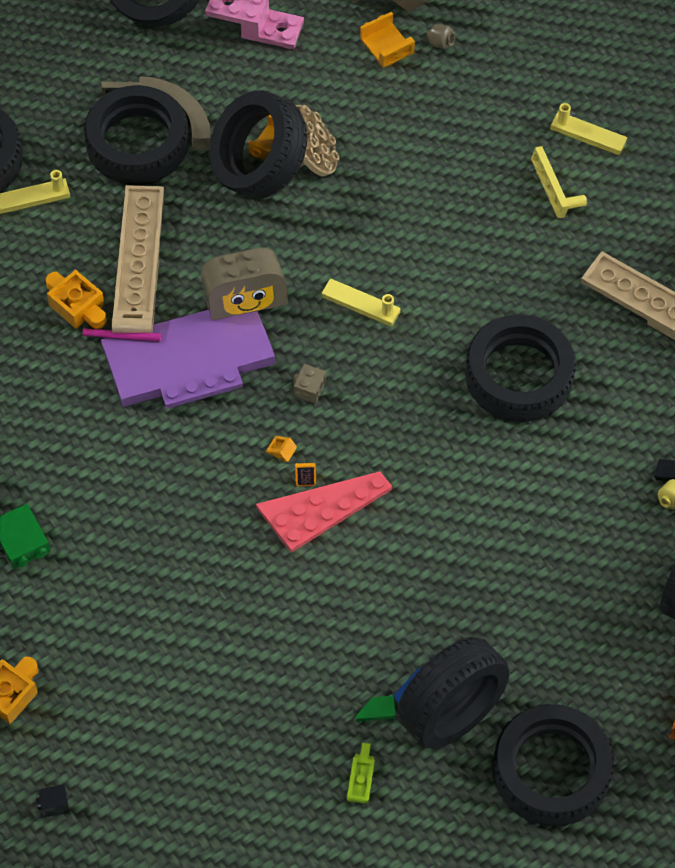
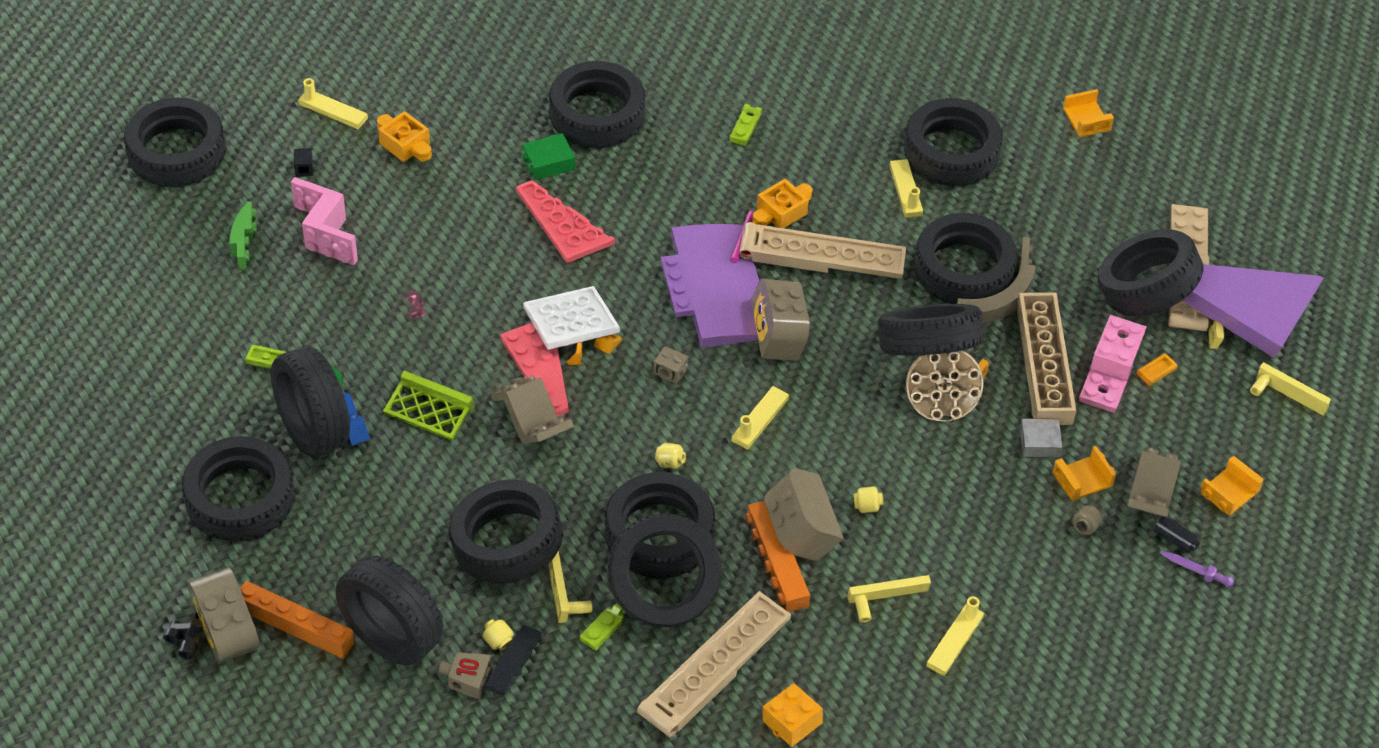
camera: 95 degrees right, 10 degrees down
(125, 506) = (563, 225): none -> coral wing
(156, 752) = (324, 220): none -> bright pink bracket
(171, 848) = (243, 232): none -> bright green slope
(256, 67) = (1045, 357): none -> tan brick
(260, 636) = (417, 302): none -> clear pink piece
(262, 480) = (571, 317): none -> white tile
(350, 73) = (1040, 438): none -> flat silver piece
(383, 598) = (439, 394): none -> lime fence
(403, 494) = (531, 409): none -> dark tan bracket
(428, 371) = (670, 455): none -> light yellow head
(450, 203) = (868, 499): none -> light yellow head
(490, 245) = (803, 515): none -> dark tan brick
(529, 271) = (778, 561): none -> orange brick
(570, 452) = (510, 563): none -> black tyre
(572, 357) = (709, 570): none -> black tyre
(605, 450) = (562, 605): none -> light yellow piece
(637, 409) = (603, 627): none -> lime hinge

